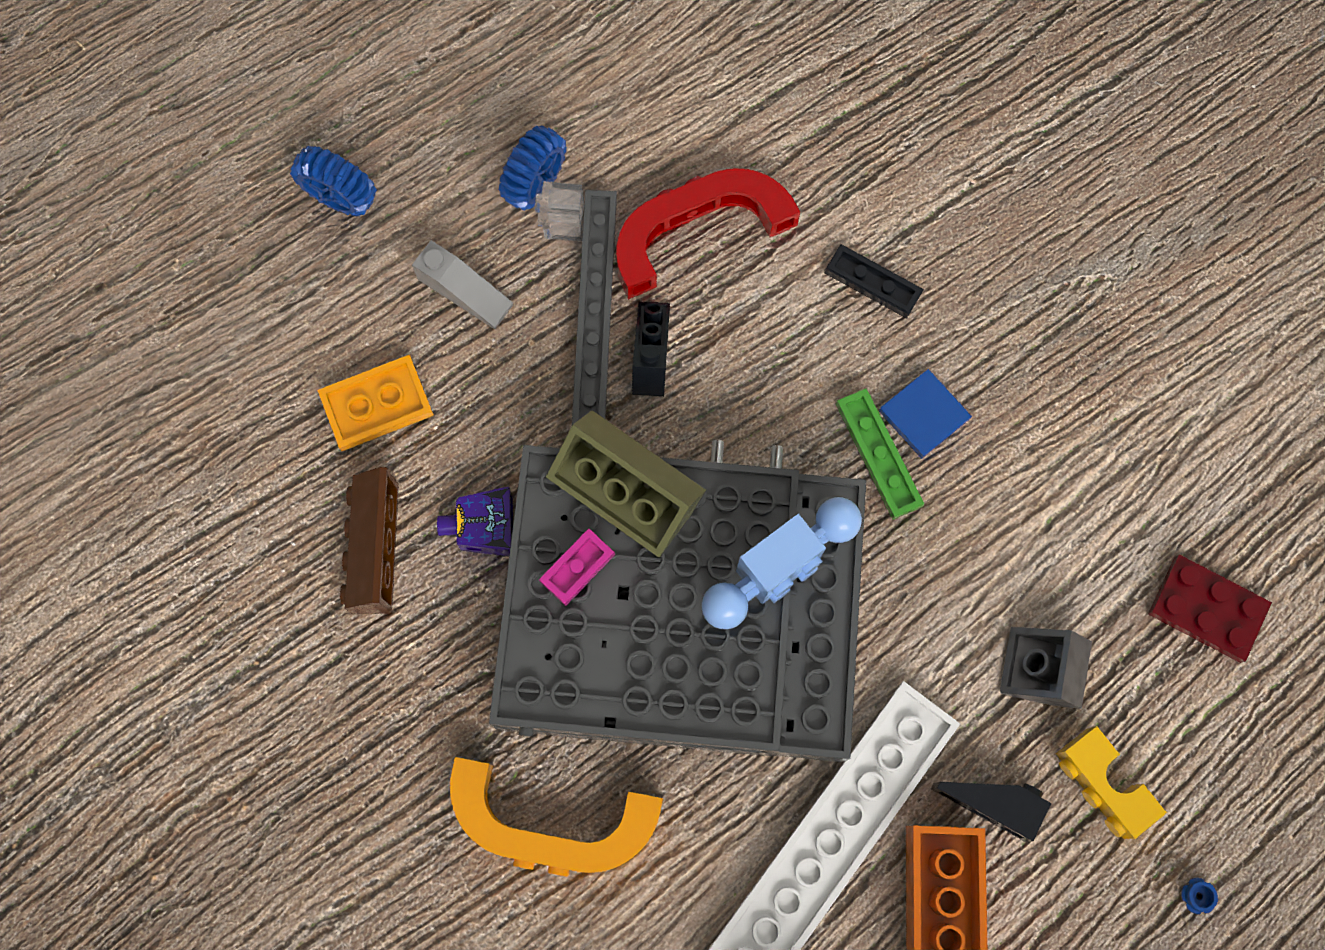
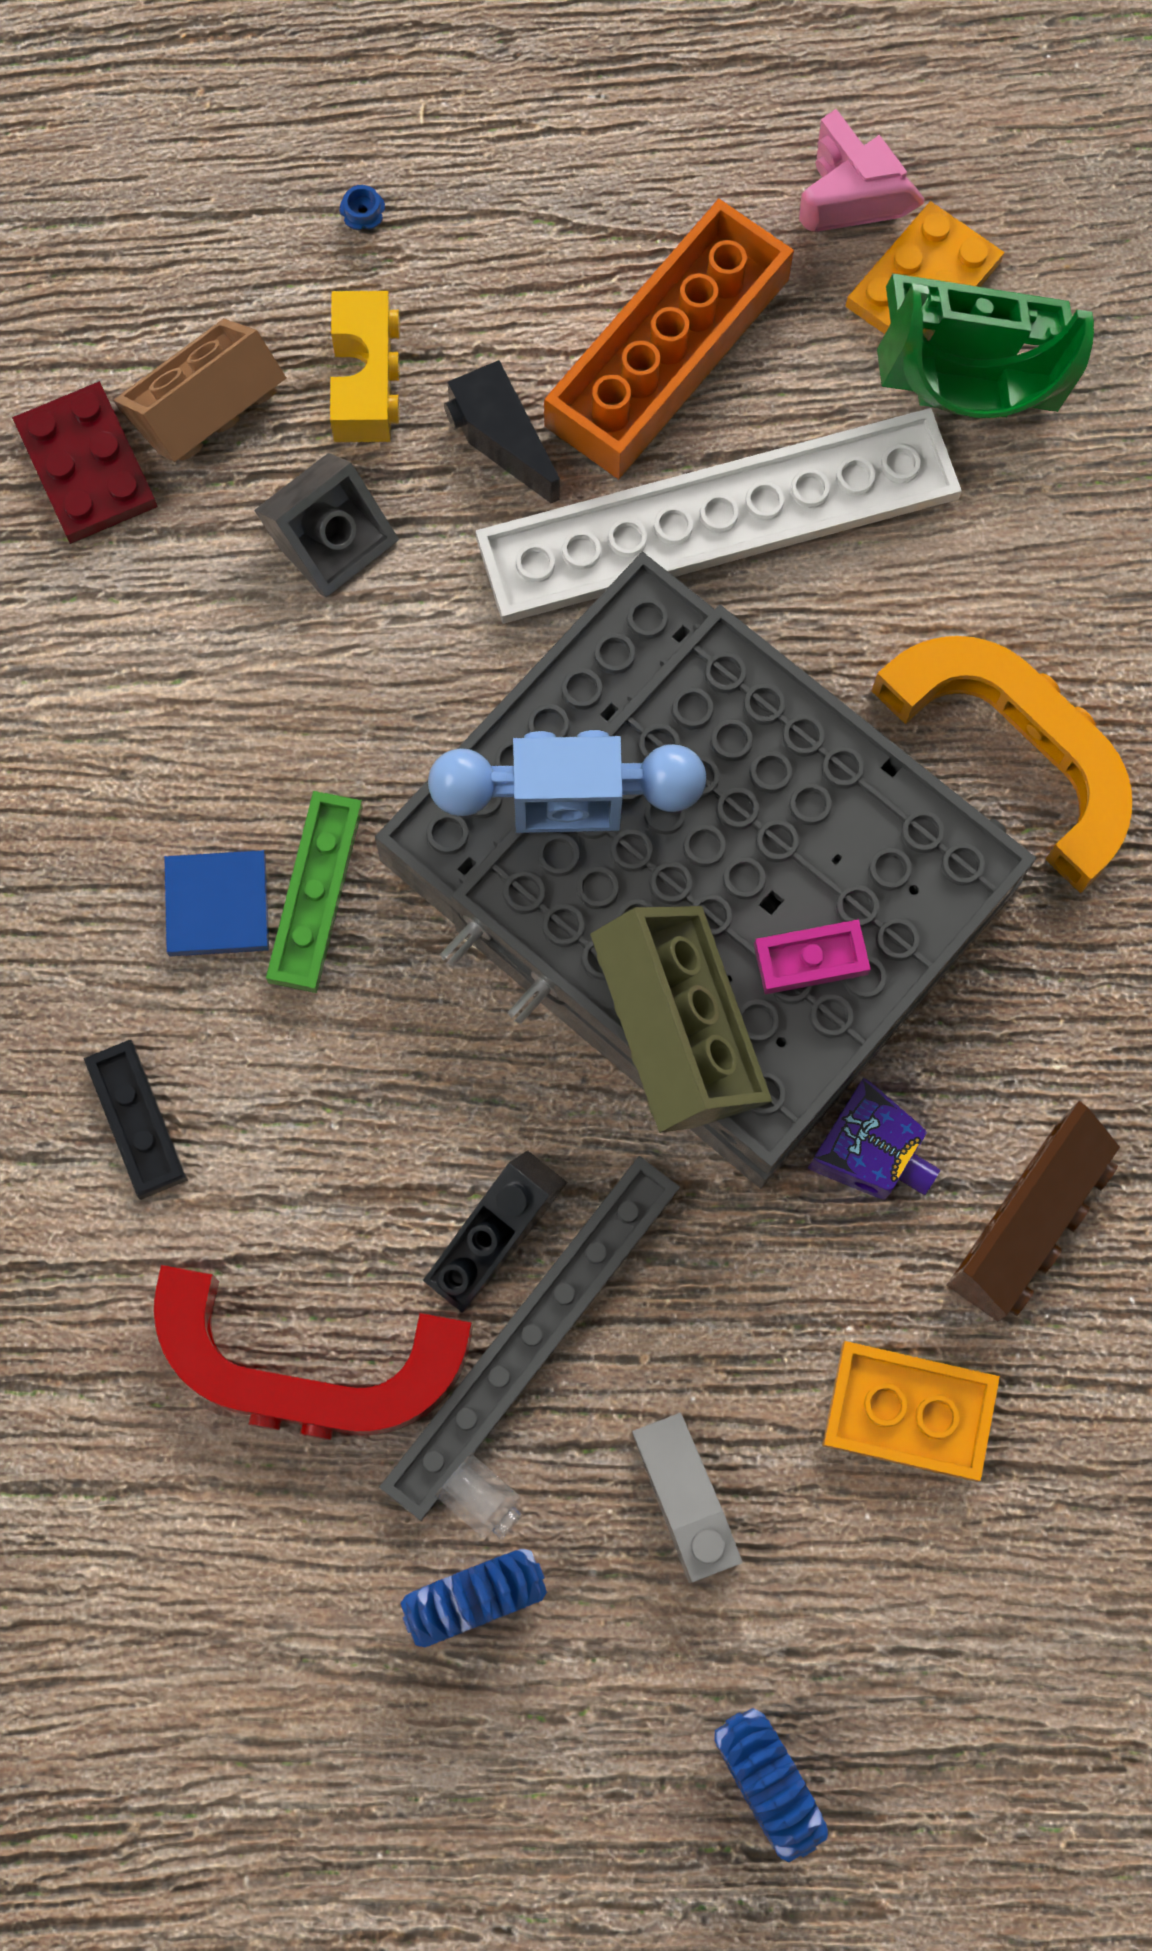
camera: 145 degrees left, 0 degrees up
(1186, 697) = (201, 389): none -> medium nougat slope

